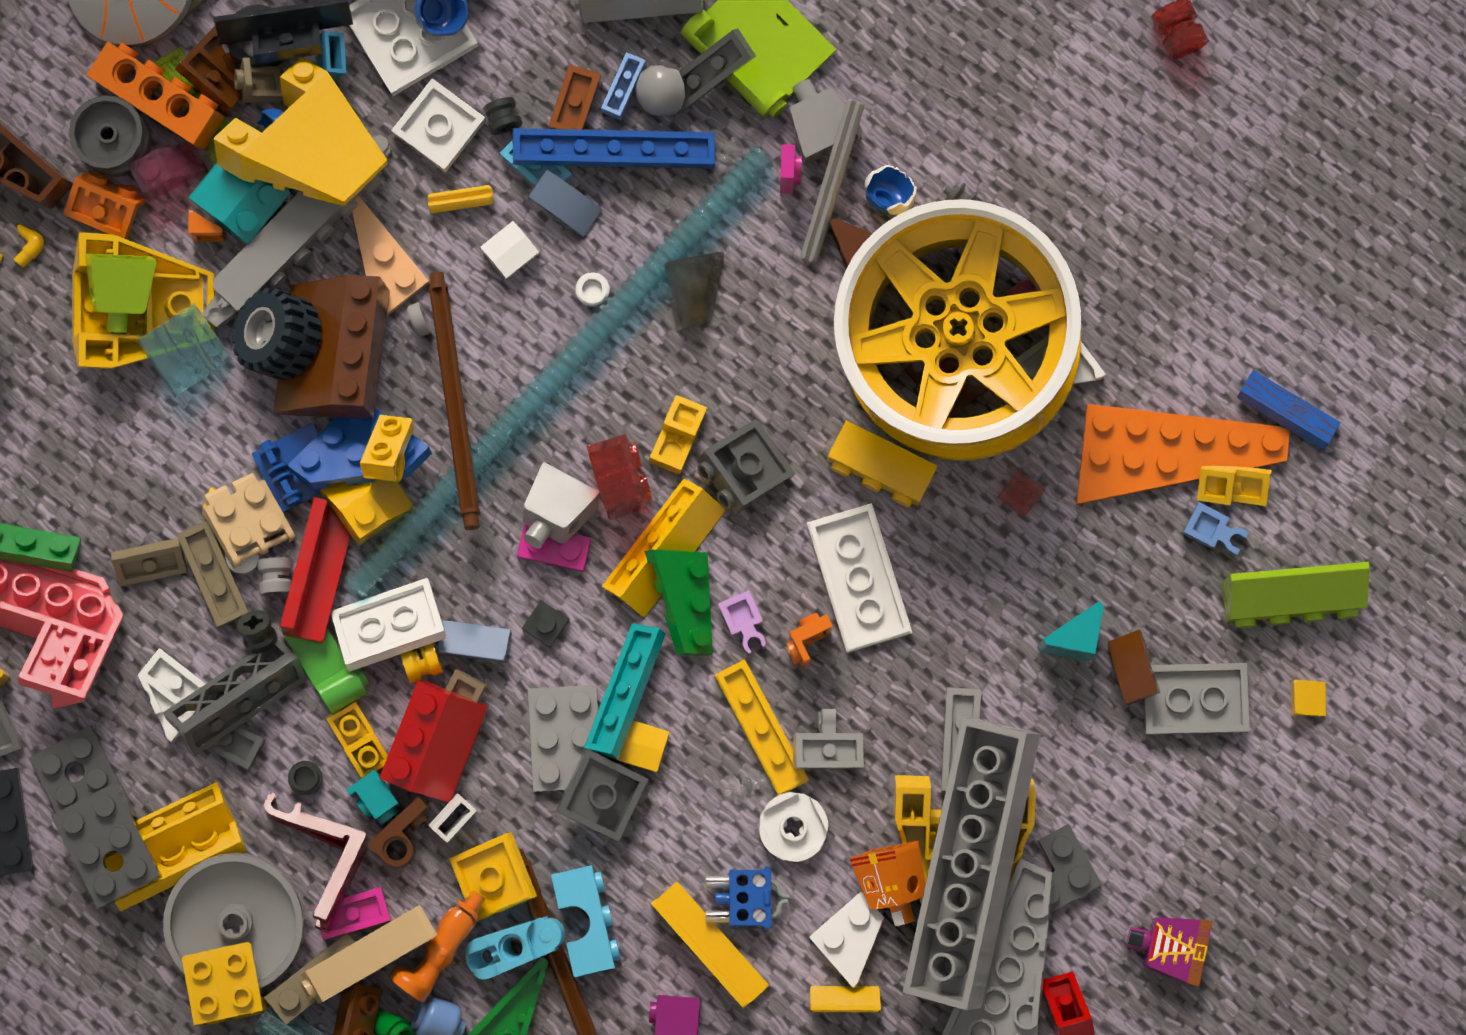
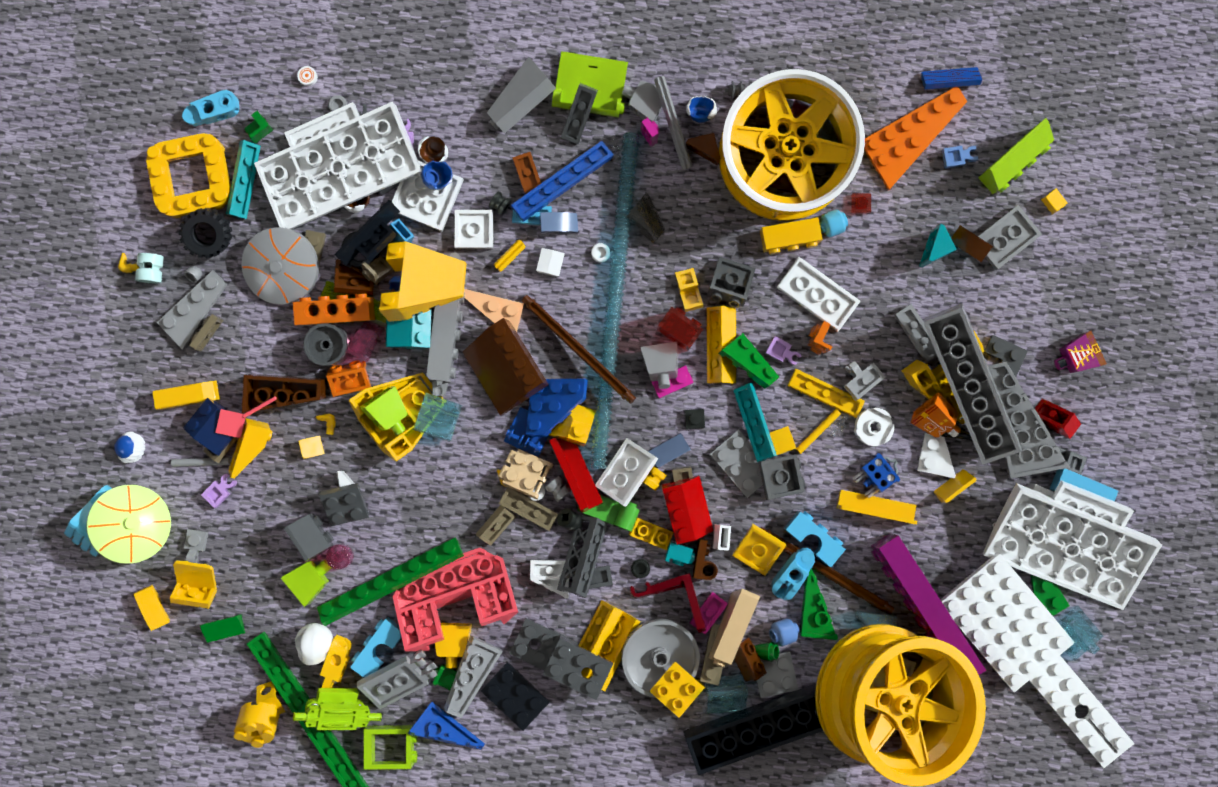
camera: 40 degrees left, 5 degrees up
(203, 230) = (403, 356): orange slope -> none
(276, 334) = (475, 379): black wheel -> none
(386, 449) = (567, 393): yellow plate -> none
(419, 319) = (533, 324): light grey tile -> none
(441, 949) = (761, 586): orange piece -> none
(623, 86) = (544, 149): light blue piece -> none
(660, 90) = (563, 139): light grey hair -> none
(709, 774) = (818, 431): none -> yellow bar
(955, 491) = (833, 223): none -> medium azure head
(1234, 484) = (952, 129): yellow slope -> none

